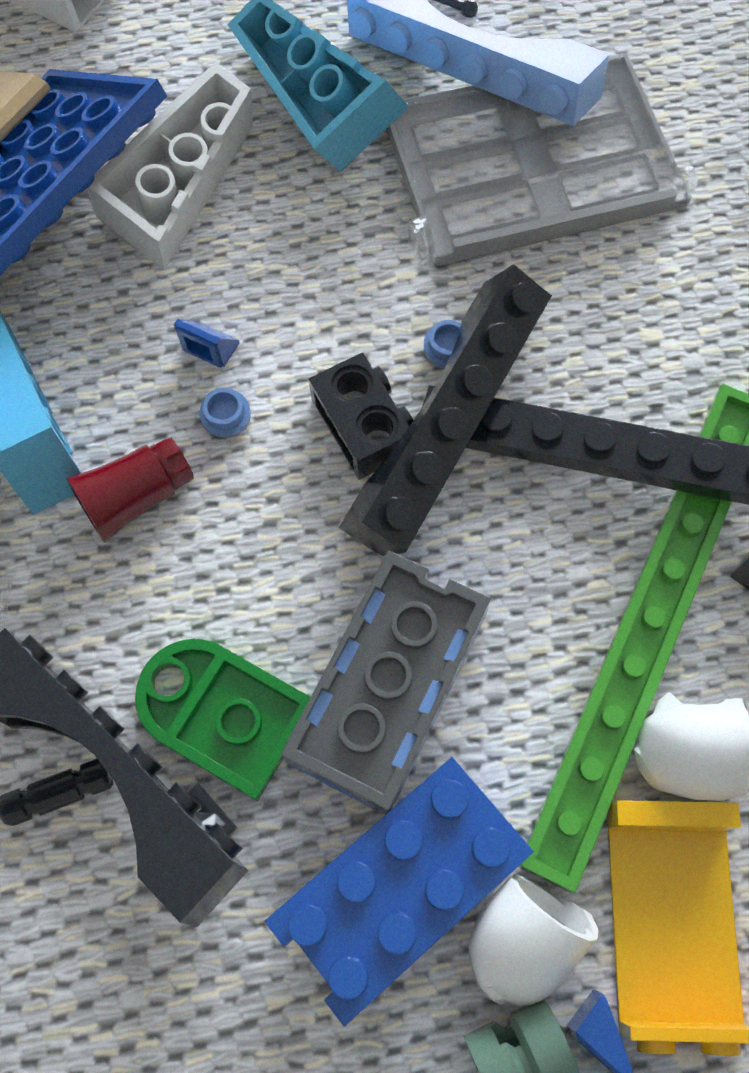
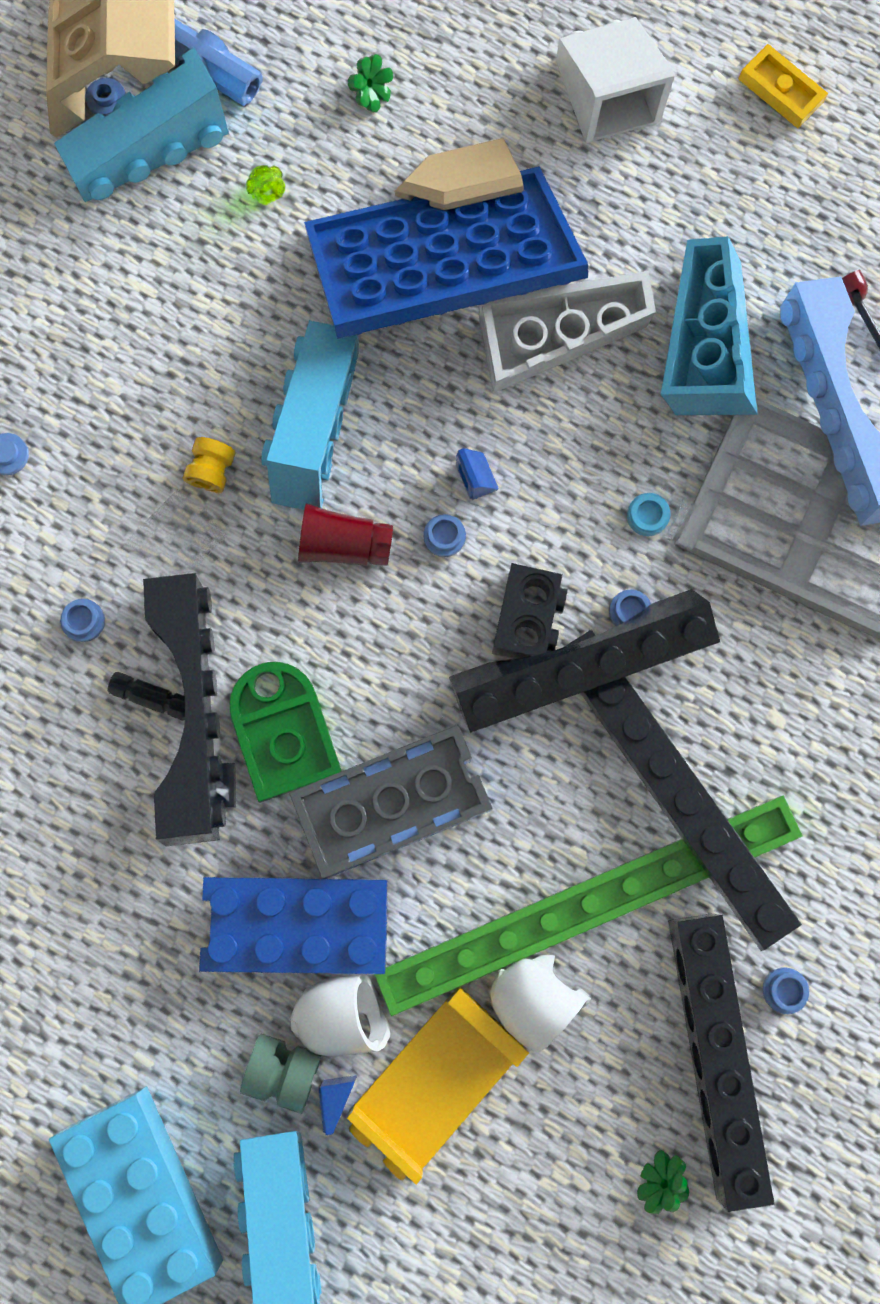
camera: 35 degrees right, 10 degrees up
(390, 260) = (648, 514): none -> medium azure tile

